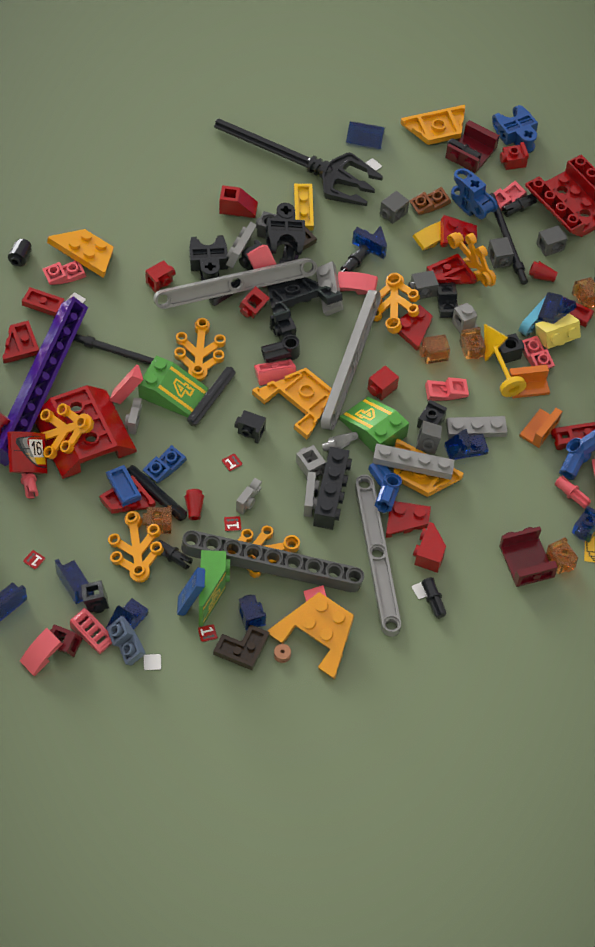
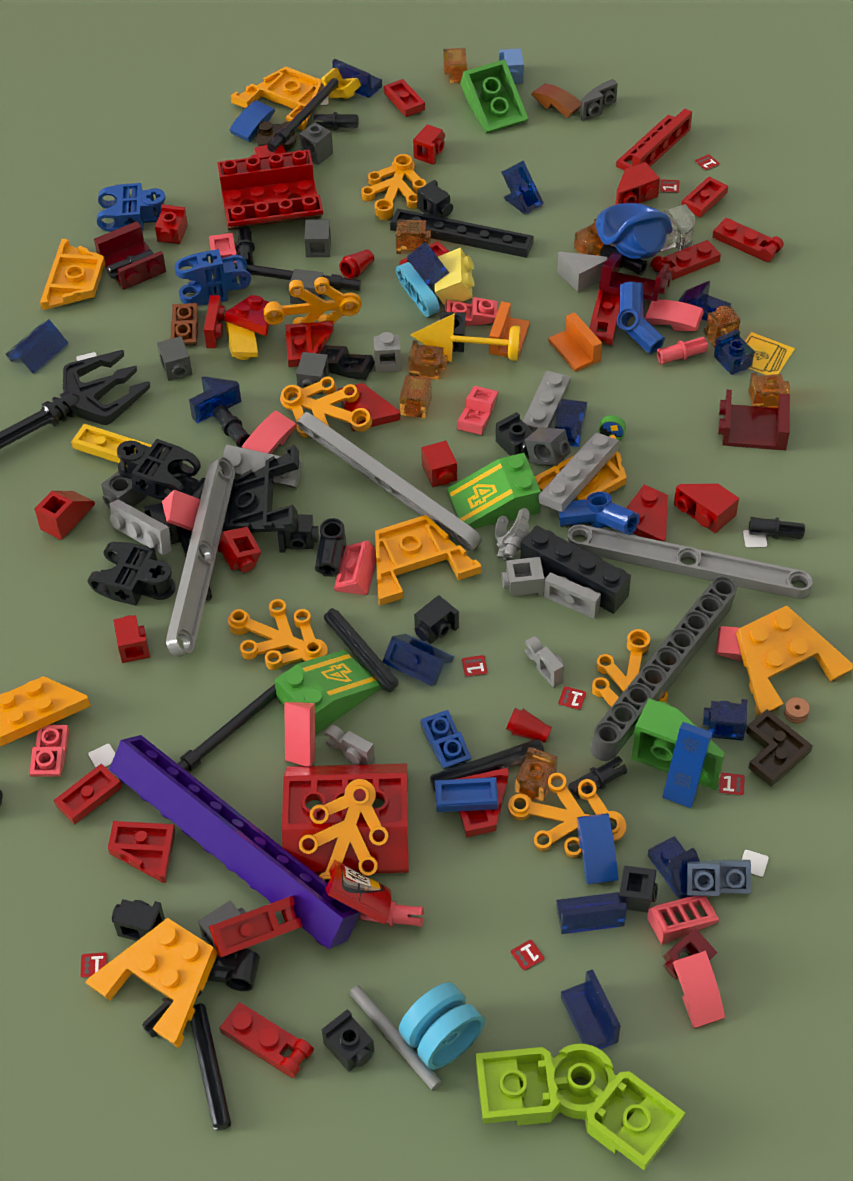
camera: 60 degrees left, 5 degrees down
(118, 565) = (597, 848): none -> blue slope
(219, 427) = (416, 658): none -> clear blue panel
(434, 214) = (213, 327): none -> red plate
(471, 471) = (612, 425): none -> tile

